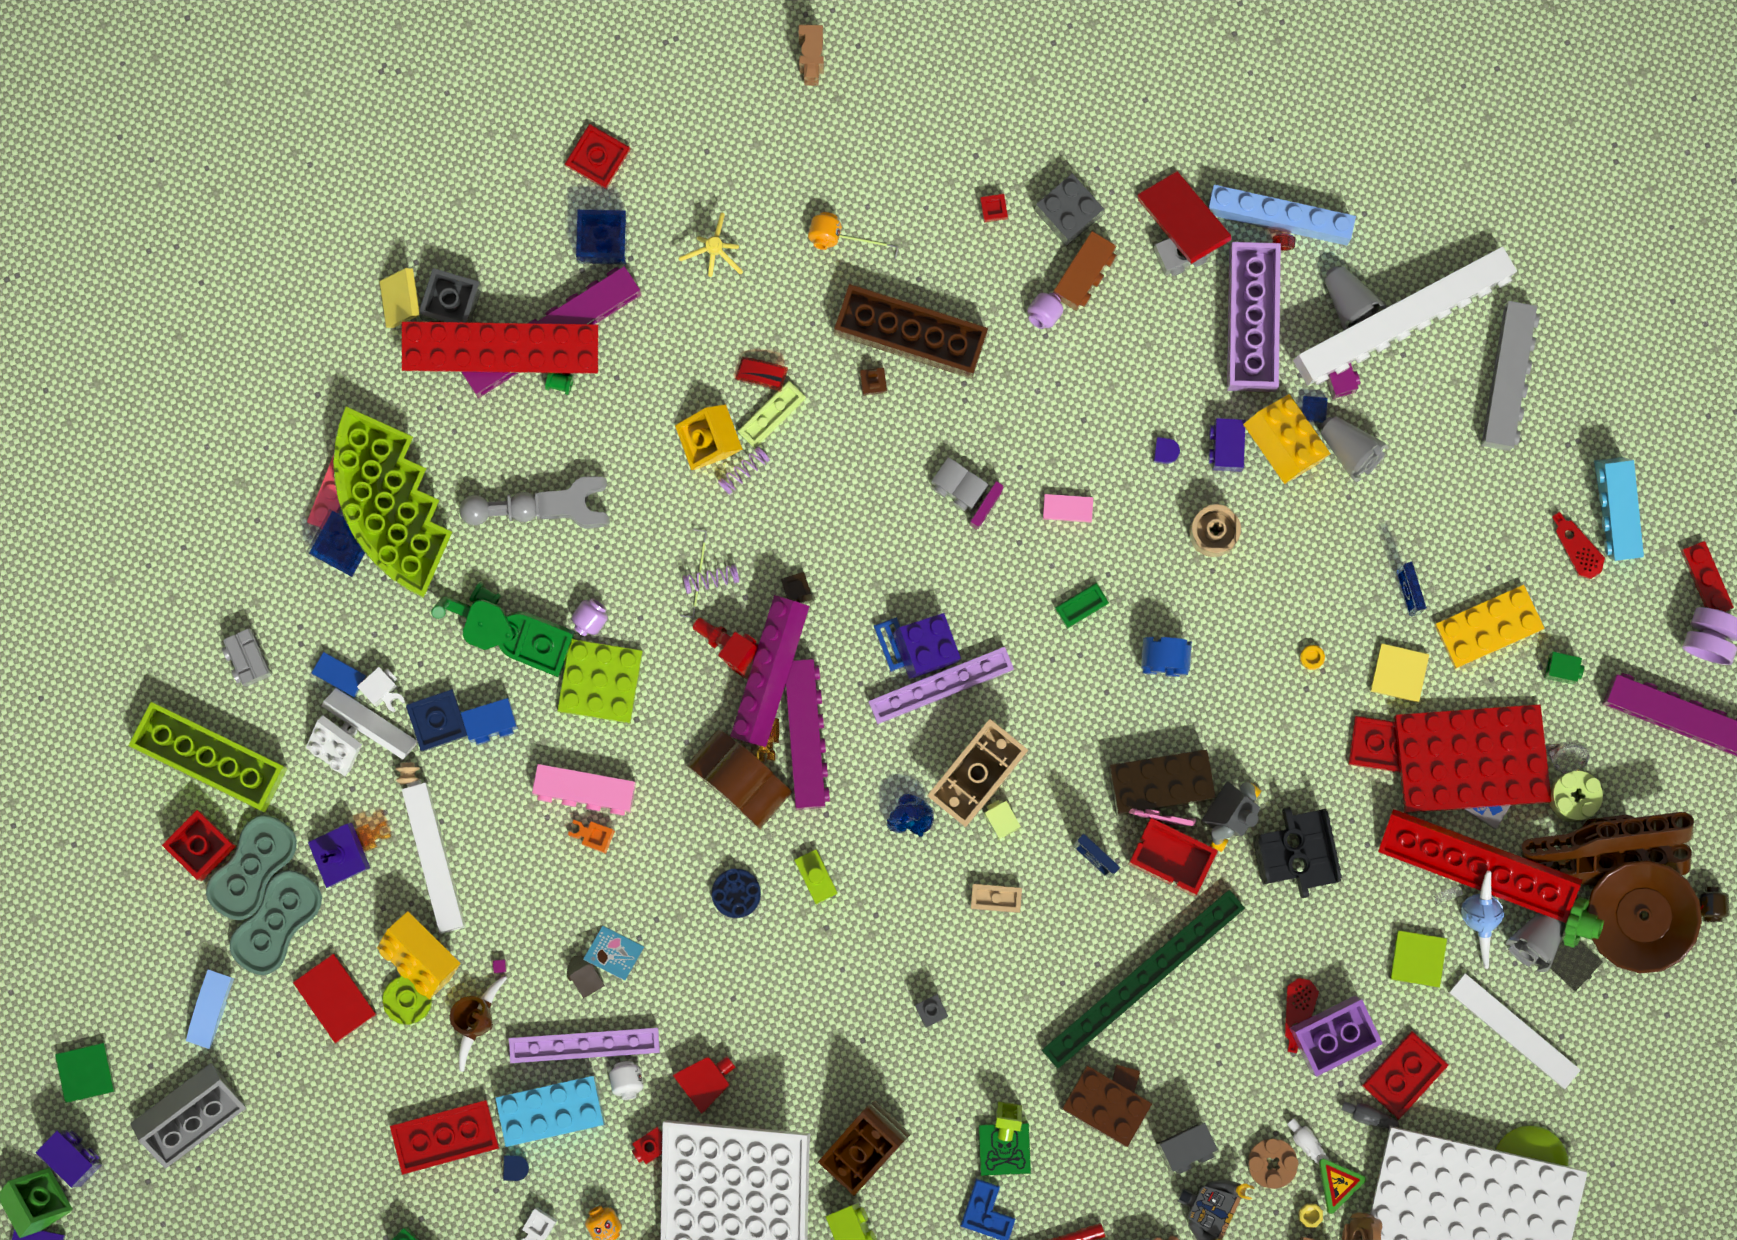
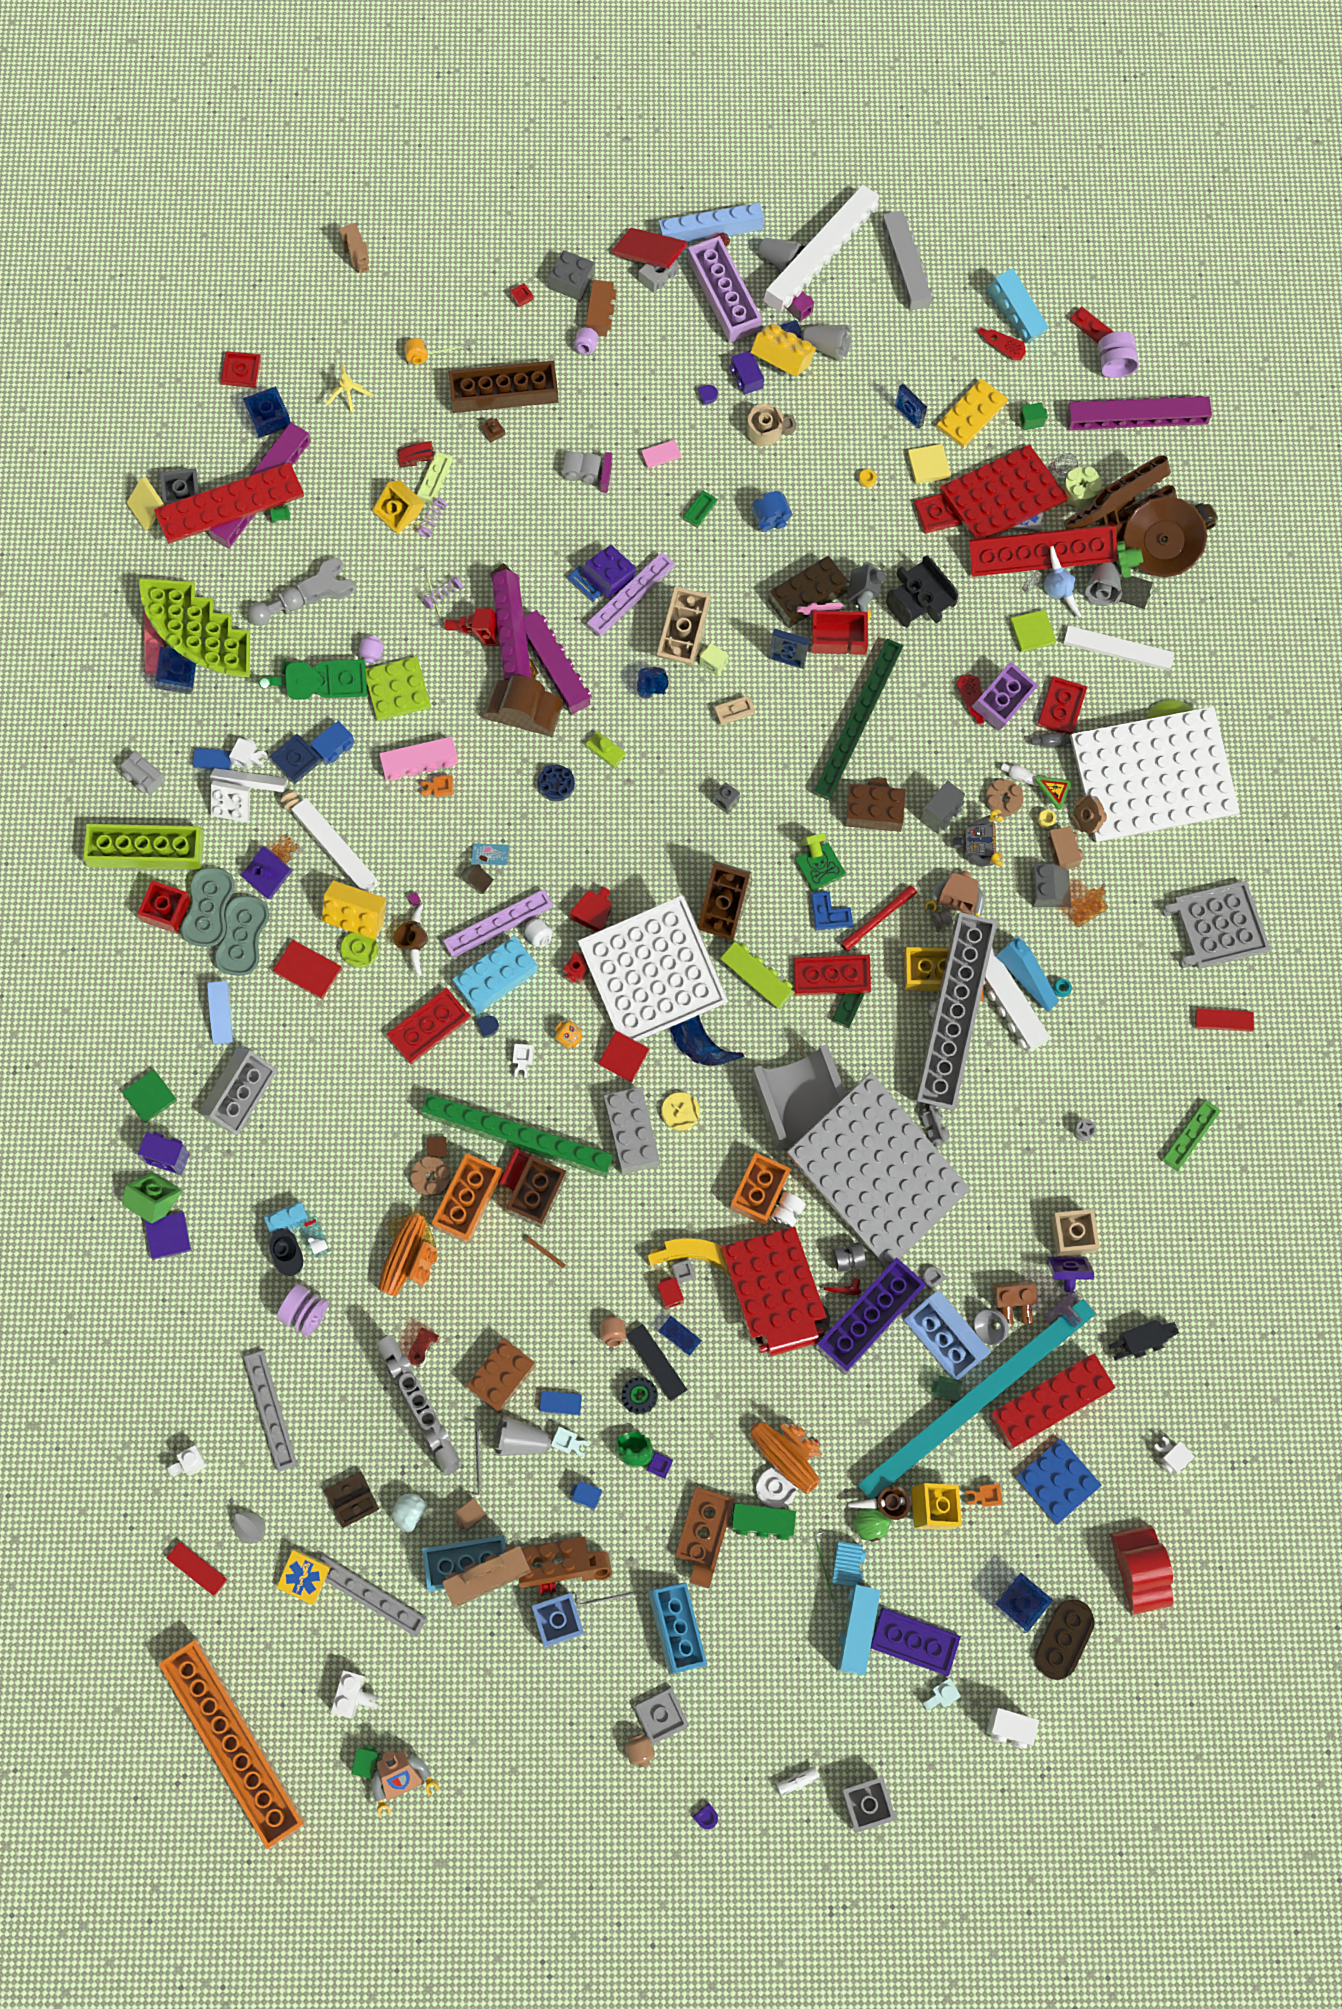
camera: 25 degrees left, 10 degrees down
(1248, 539) = (789, 425): none -> dark tan tile

